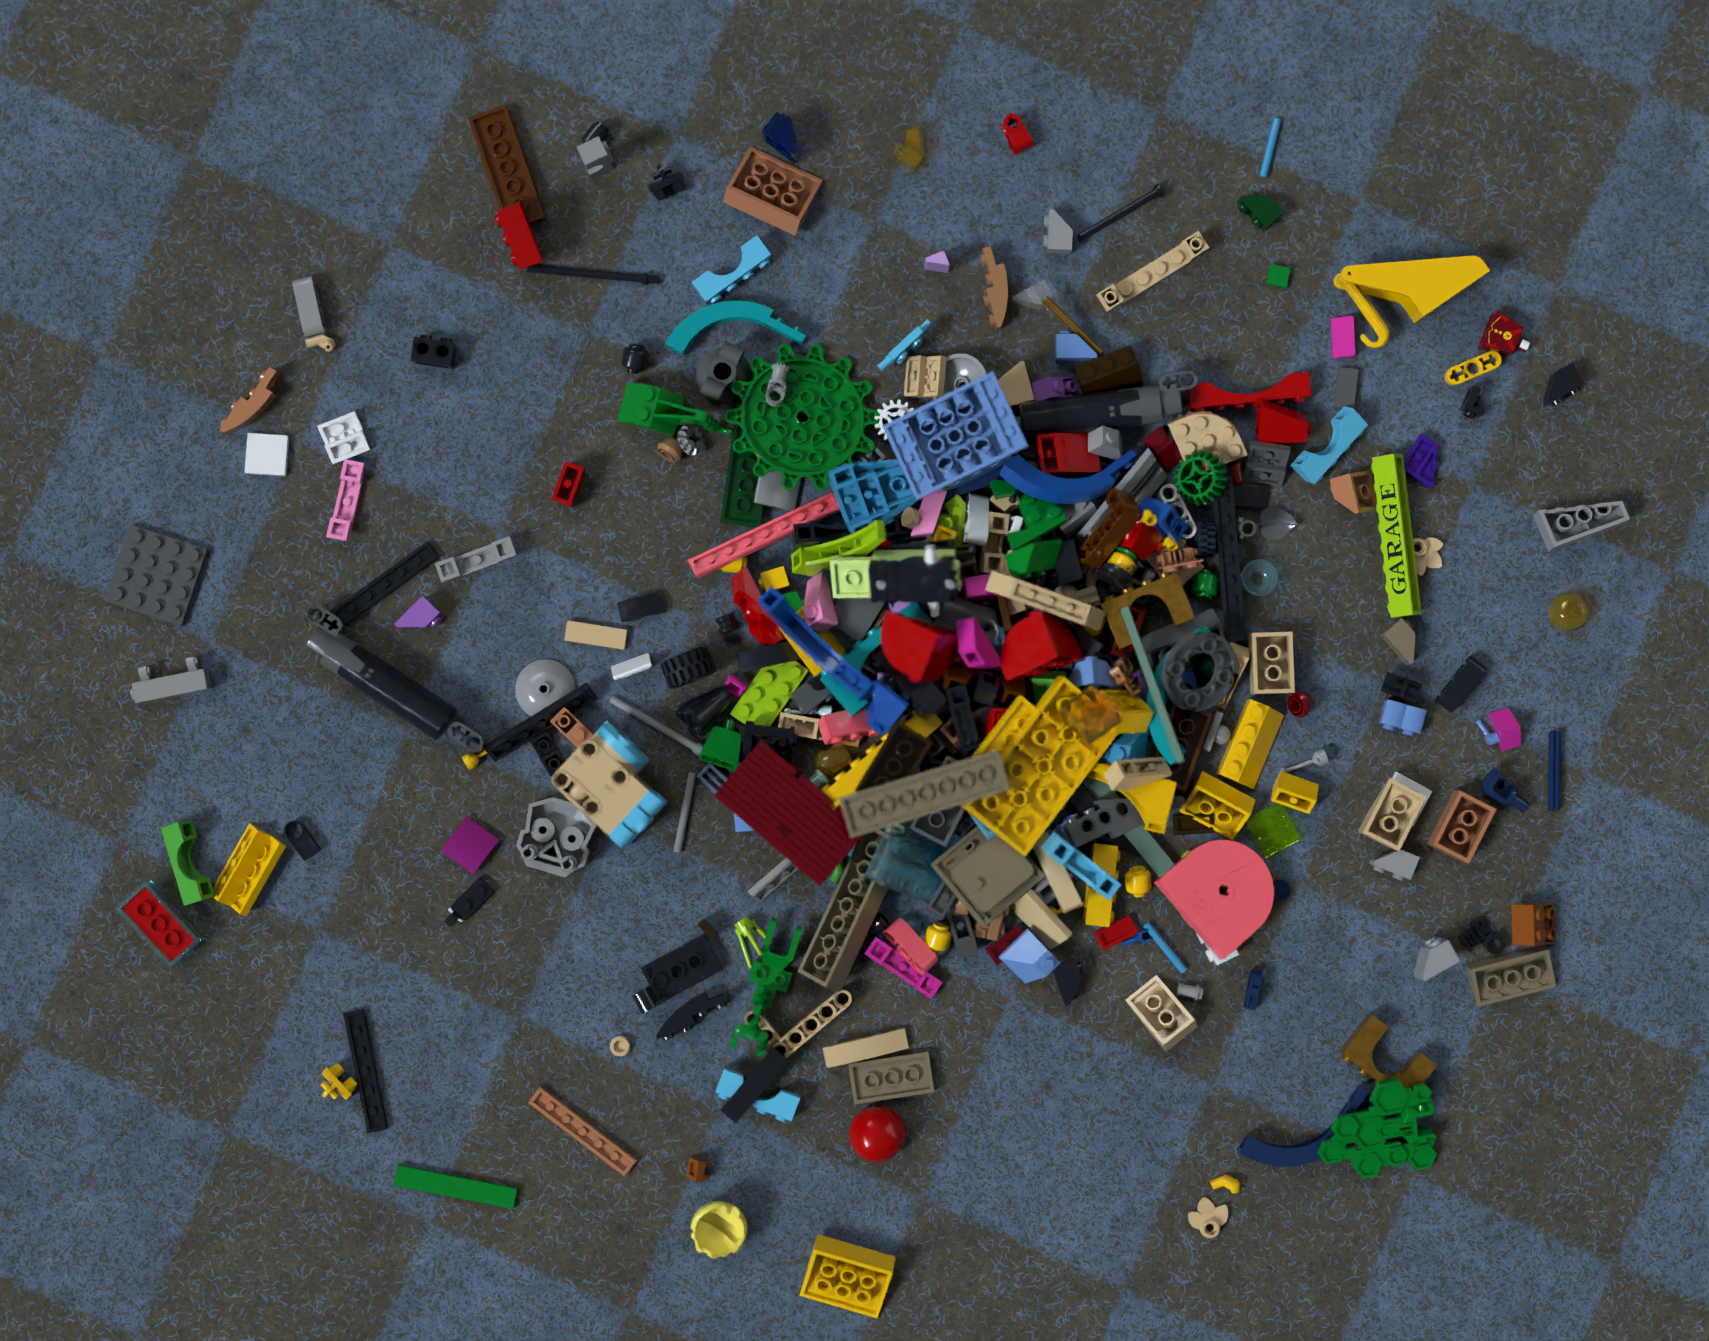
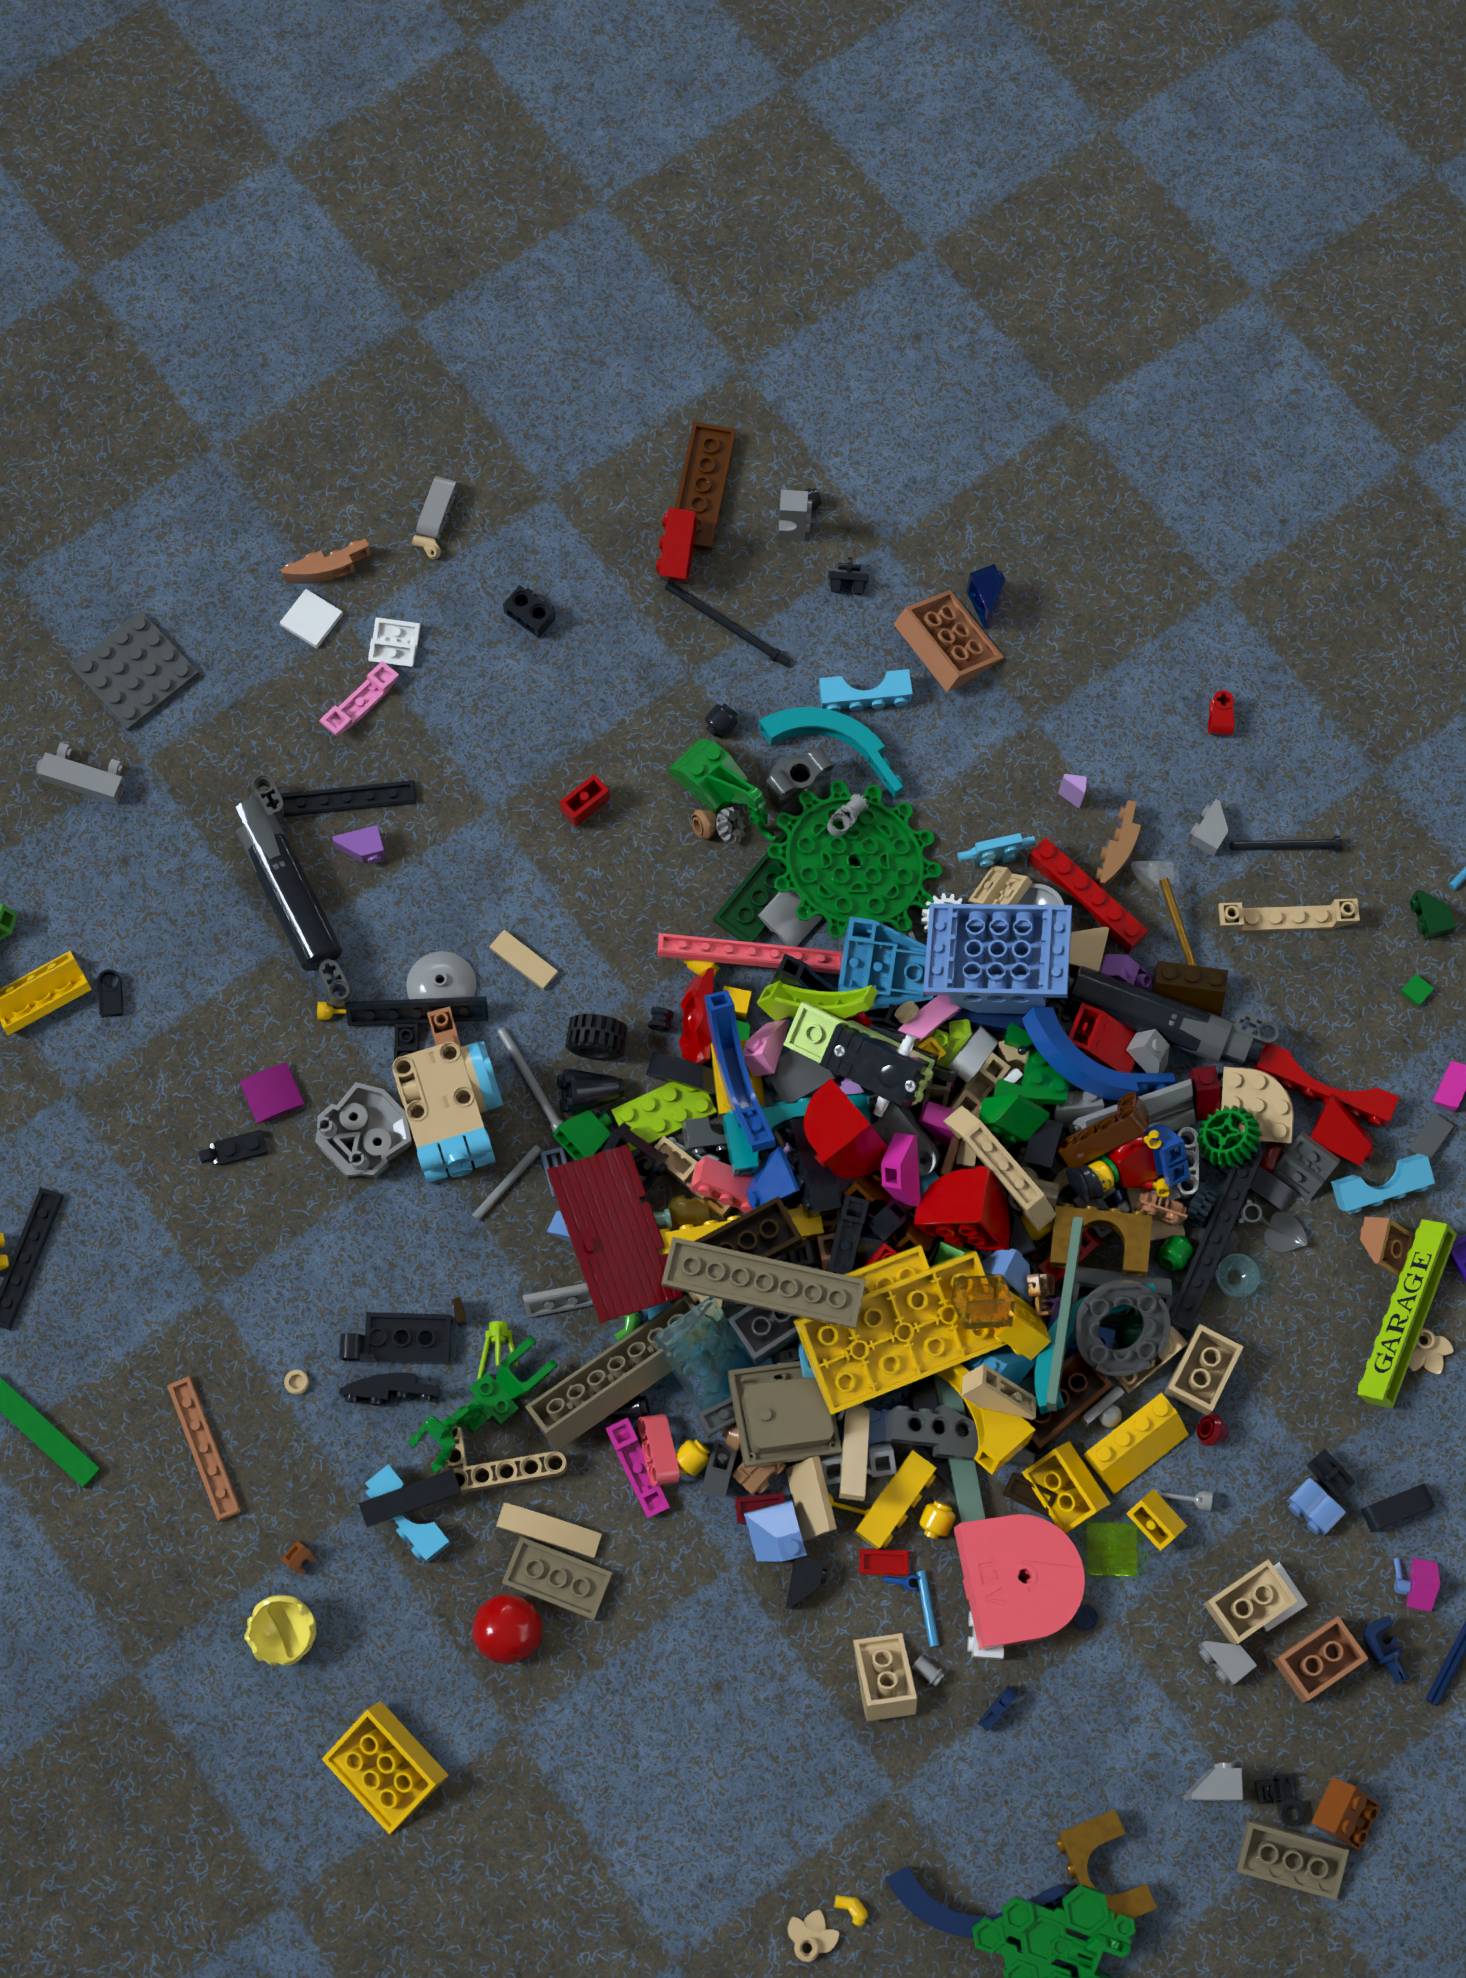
camera: 30 degrees right, 15 degrees down
(476, 560) = (450, 824): light grey slope -> none
(631, 666) = (540, 1010): white slope -> none
(640, 607) = (584, 955): black slope -> none
(735, 685) = (633, 1086): dark pink slope -> none
(912, 151) = (1106, 675): clear yellow slope -> none
(977, 337) = (1061, 870): none -> red arch
(1072, 348) = (1165, 944): medium blue slope -> none
(1081, 865) = (885, 1459): medium azure arch -> none
(1401, 639) = (1356, 1424): dark tan slope -> none

